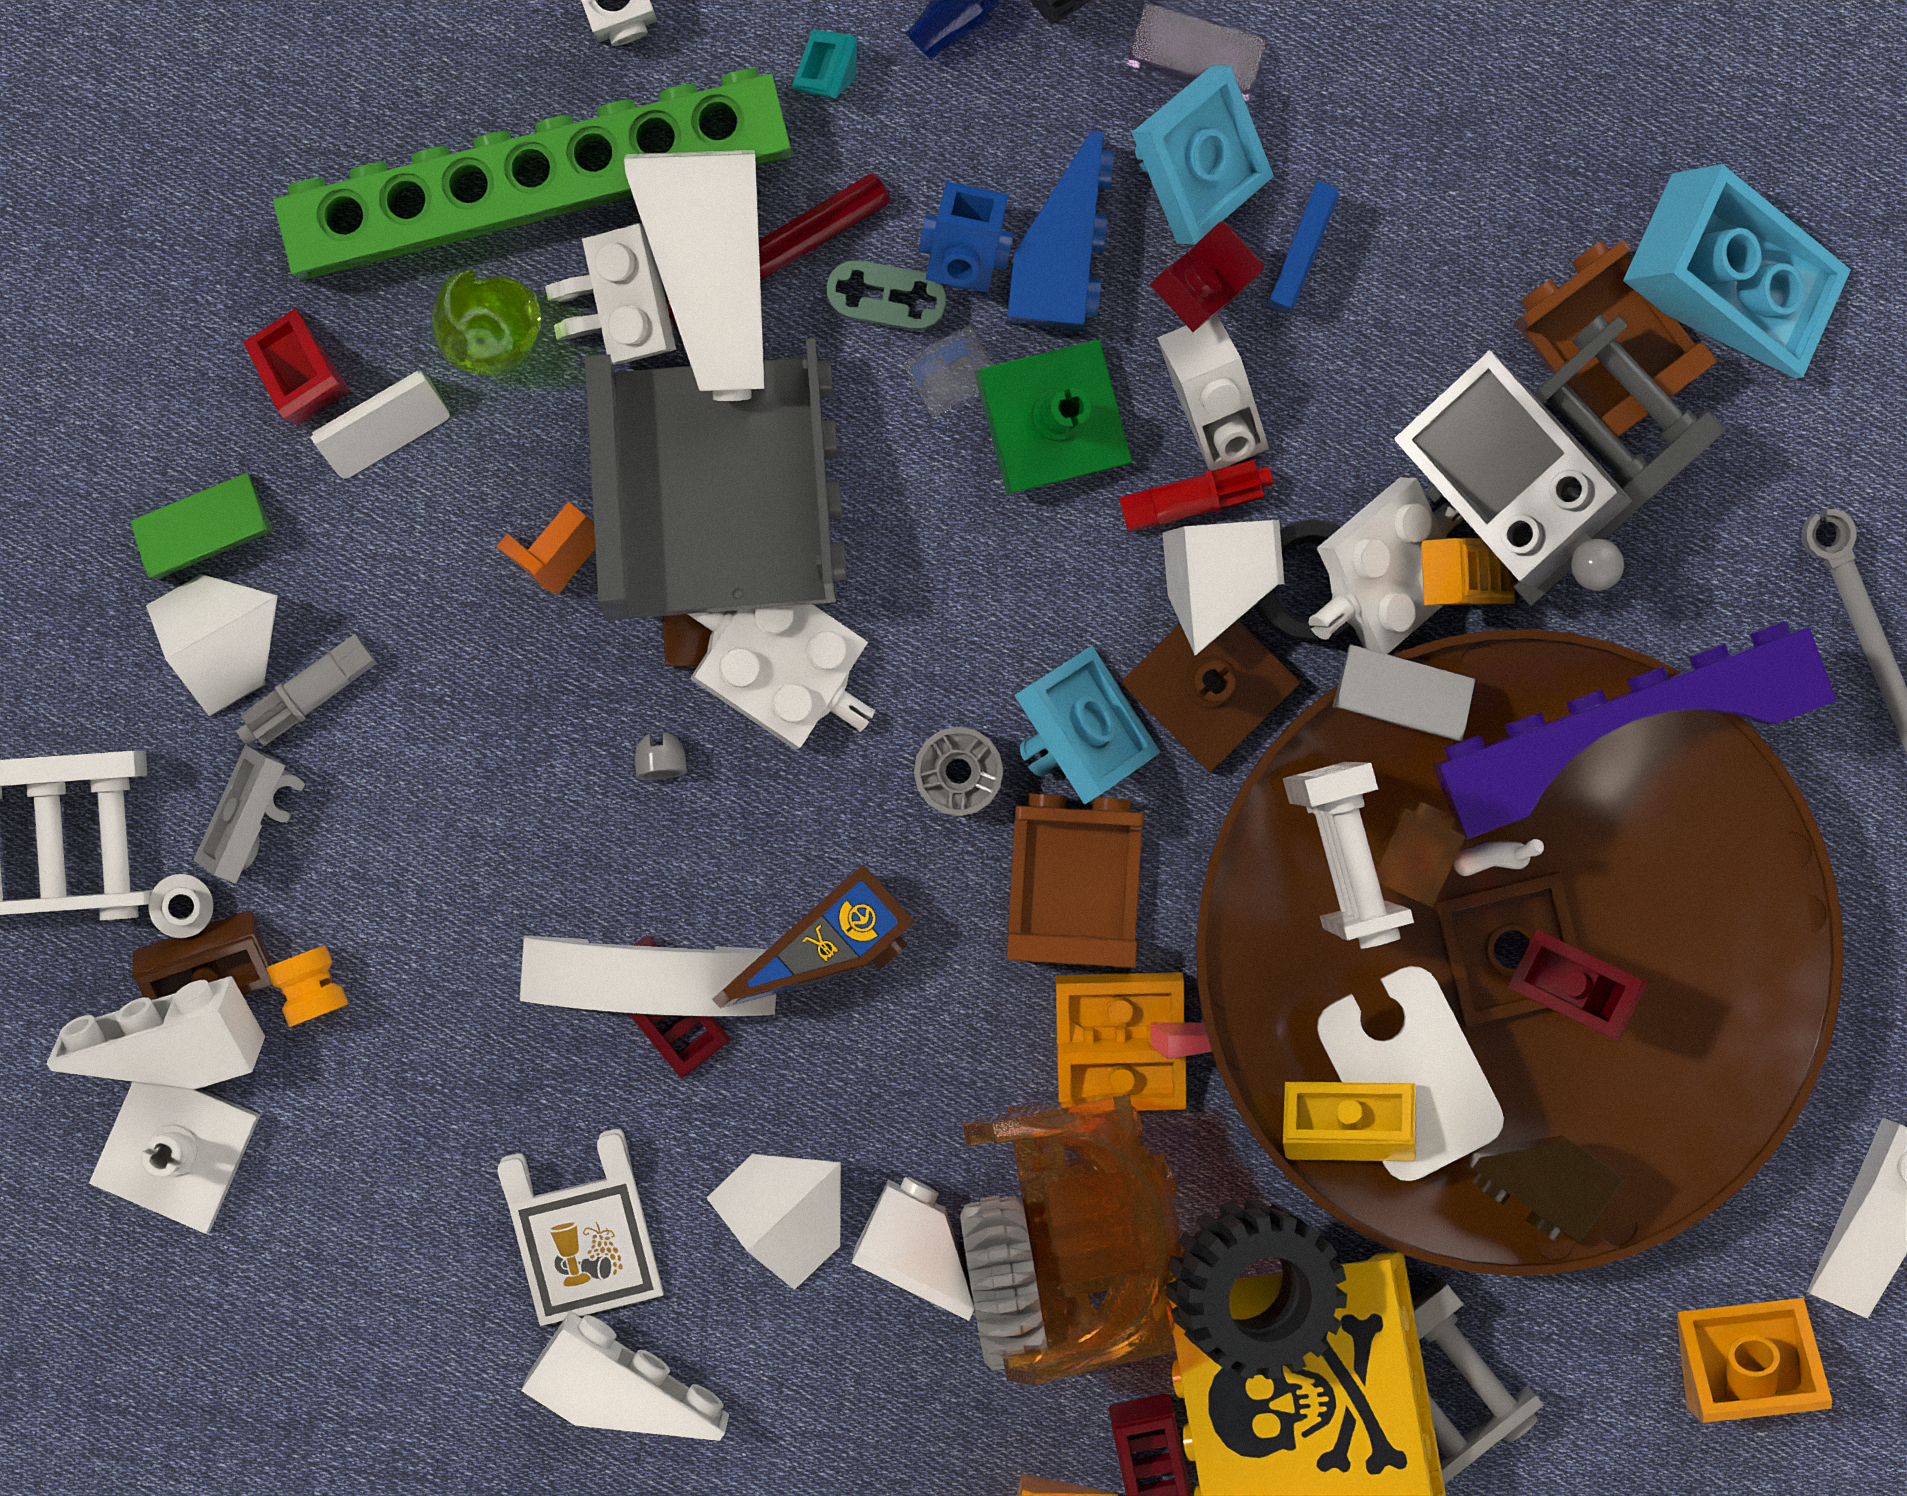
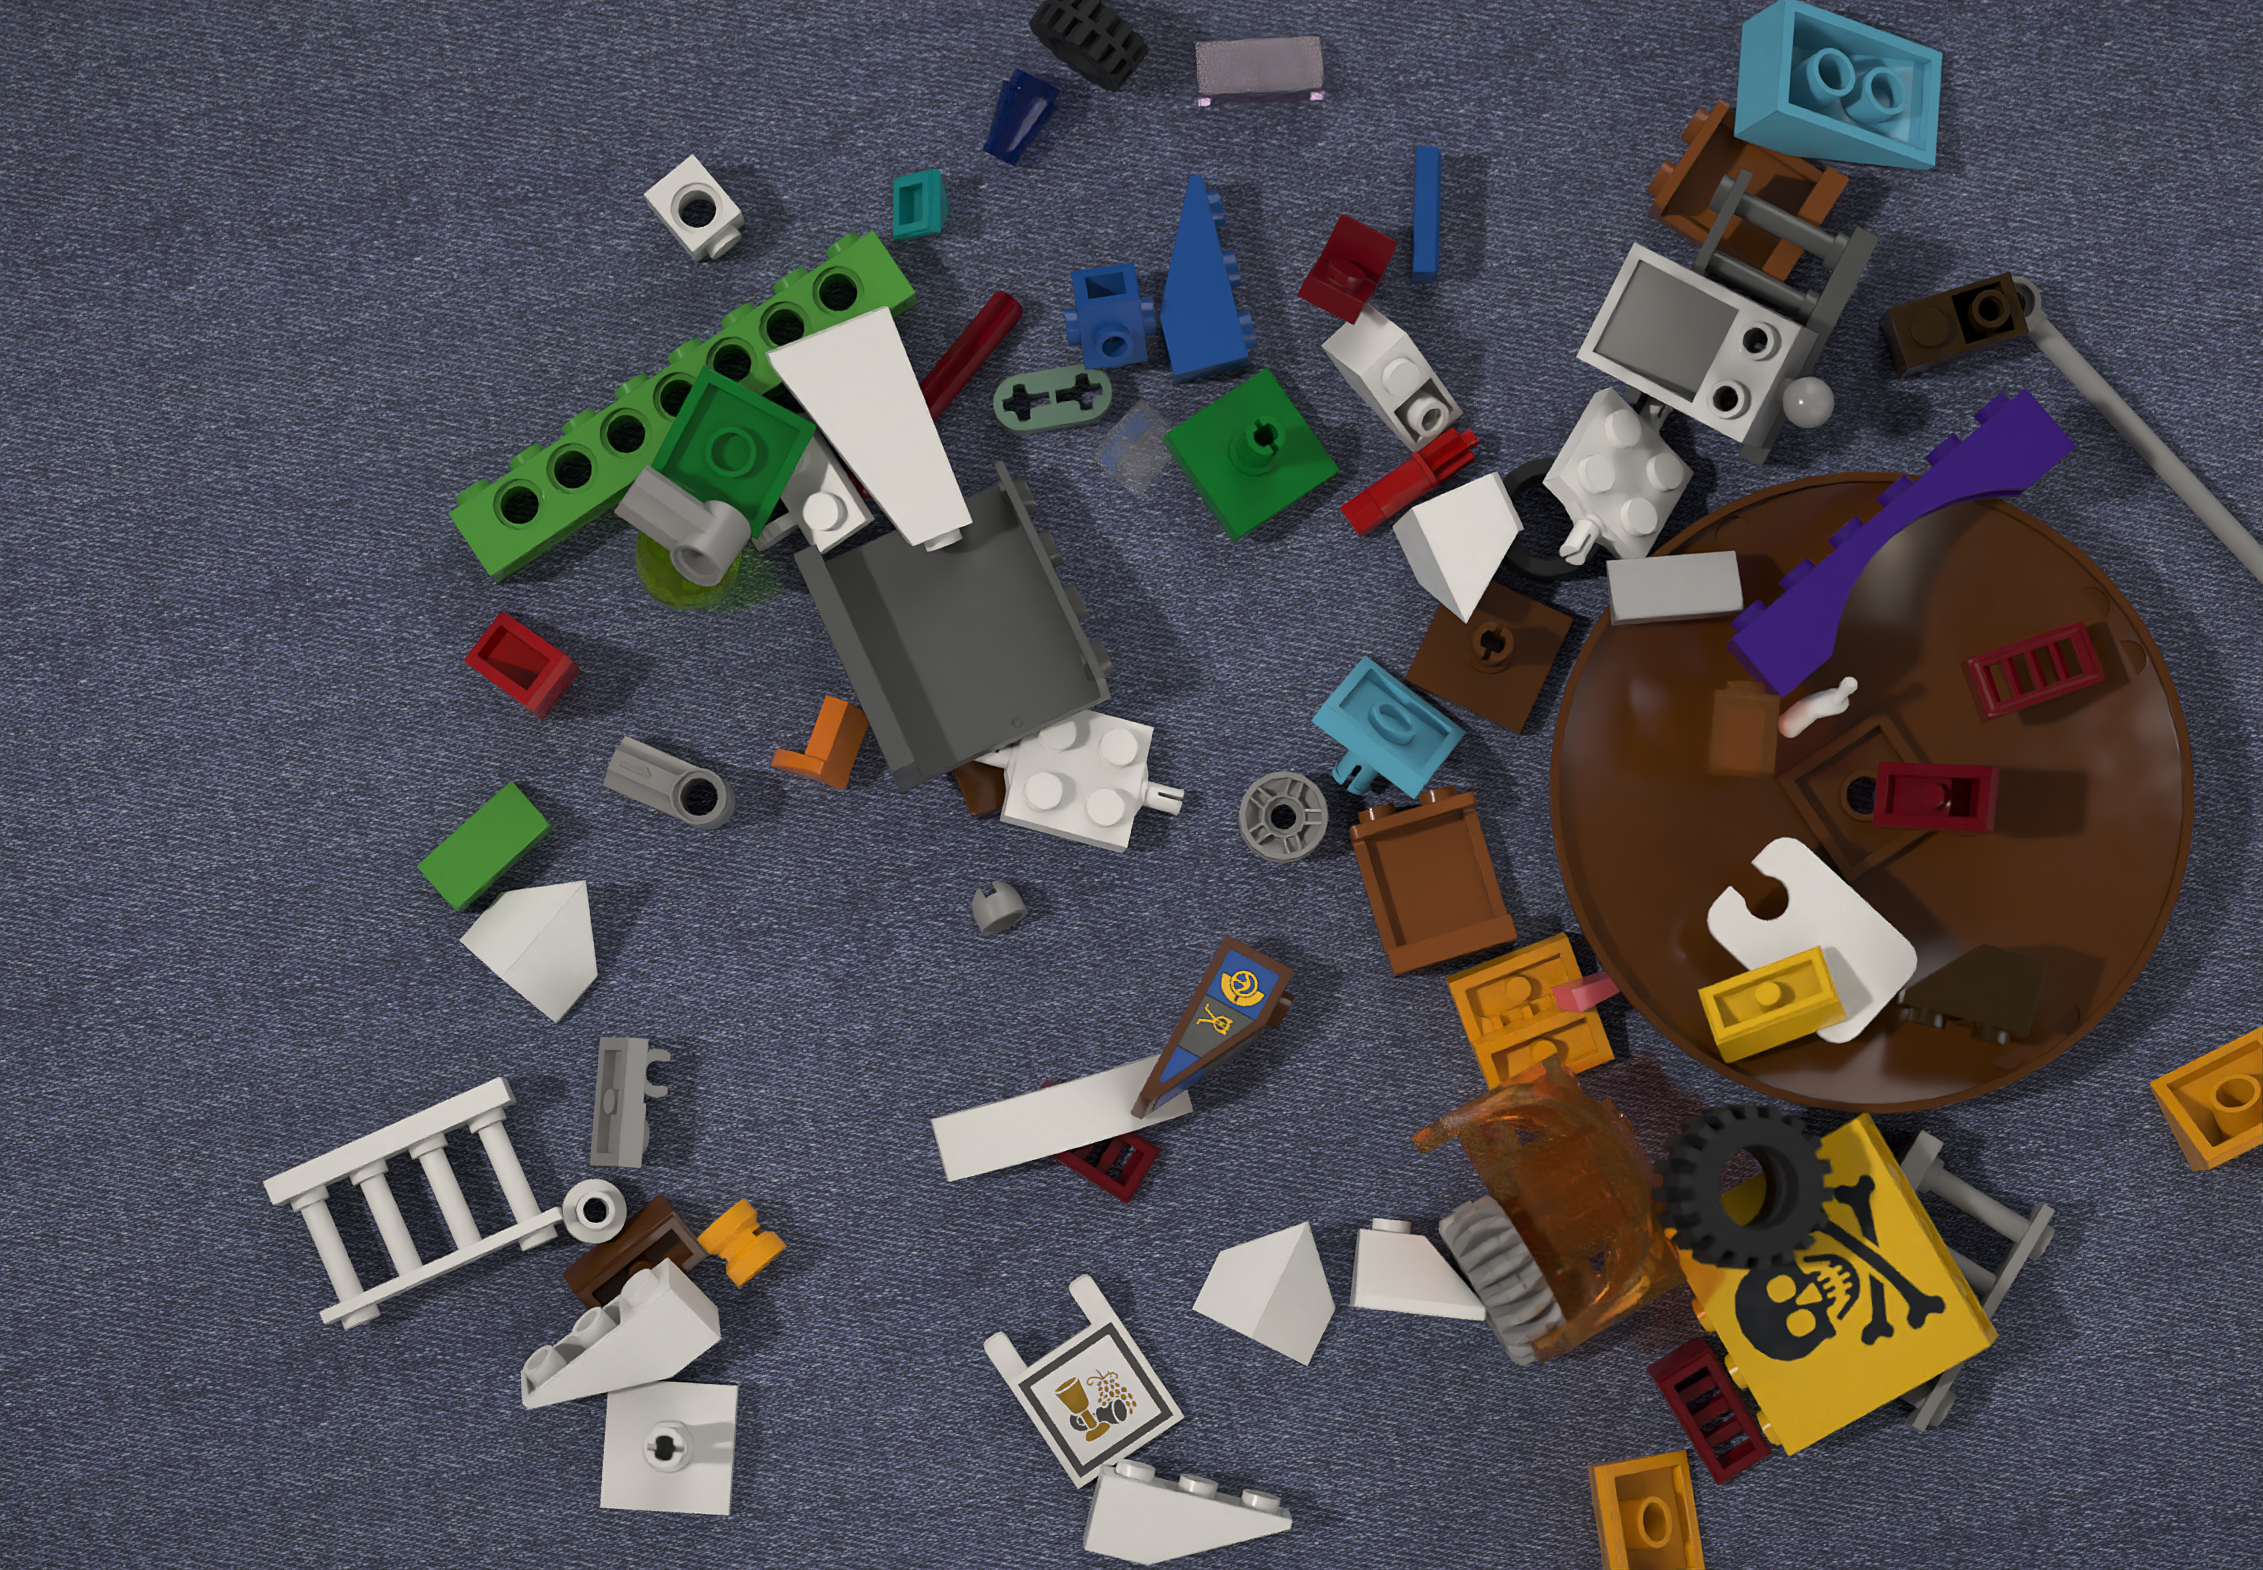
camera: 25 degrees left, 5 degrees down
(305, 692) = (640, 966): light grey piece -> none
(381, 425) = (622, 689): white slope -> none
(391, 528) = (665, 783): none -> light grey piece
(497, 308) = (699, 535): none -> light grey piece
(558, 238) = (733, 447): none -> green tile
(1202, 154) = (1300, 160): medium azure tile -> none
(1335, 799) = (1645, 702): white fence -> none
(1464, 573) = (1689, 458): light orange slope -> none
(1661, 896) = (1983, 687): none -> dark red slope
(1763, 535) = (1952, 325): none -> dark brown slope

